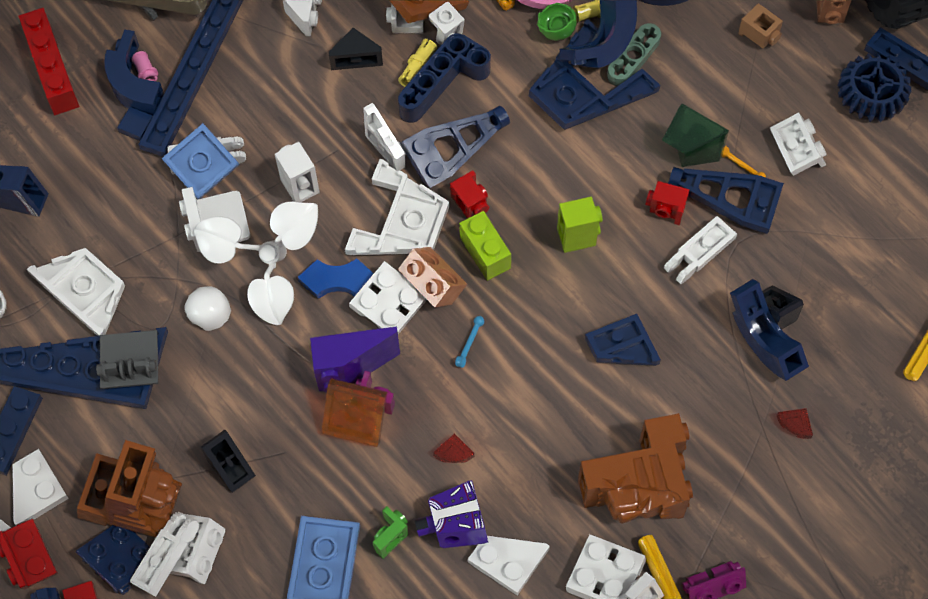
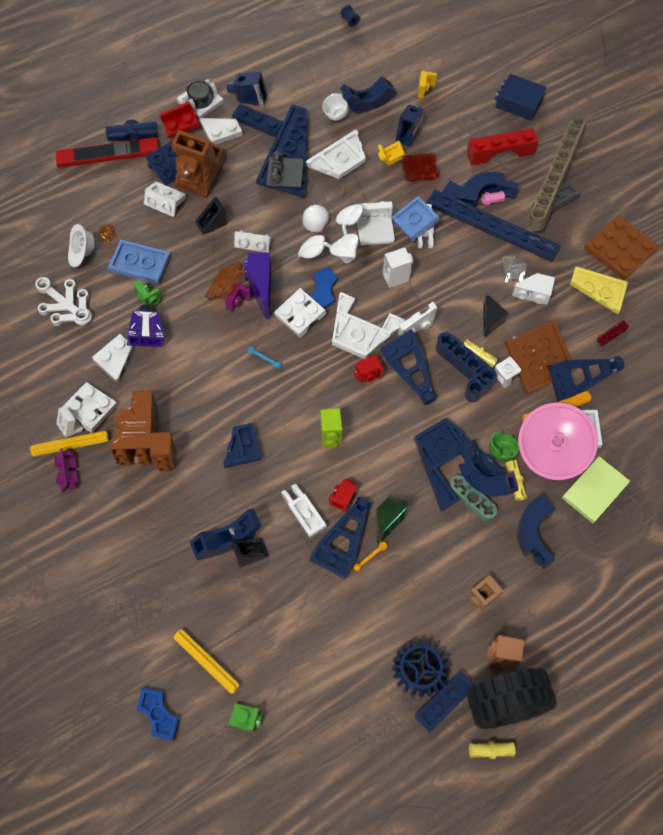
camera: 95 degrees right, 0 degrees up
(71, 211) = (391, 153): none -> yellow bracket
(98, 169) = (420, 167): none -> clear red bracket
(164, 553) = (161, 180): white hinge -> none
(263, 380) = (252, 241): none -> white hinge
(266, 32) = (513, 268): none -> clear slope
(432, 276) = (311, 340): nougat brick -> none
(454, 451) = (192, 337): clear red tile -> none
(485, 245) = (328, 372): lime brick -> none
(796, 422) = (161, 547): clear red tile -> none
(797, 143) = (378, 599): white bracket -> none

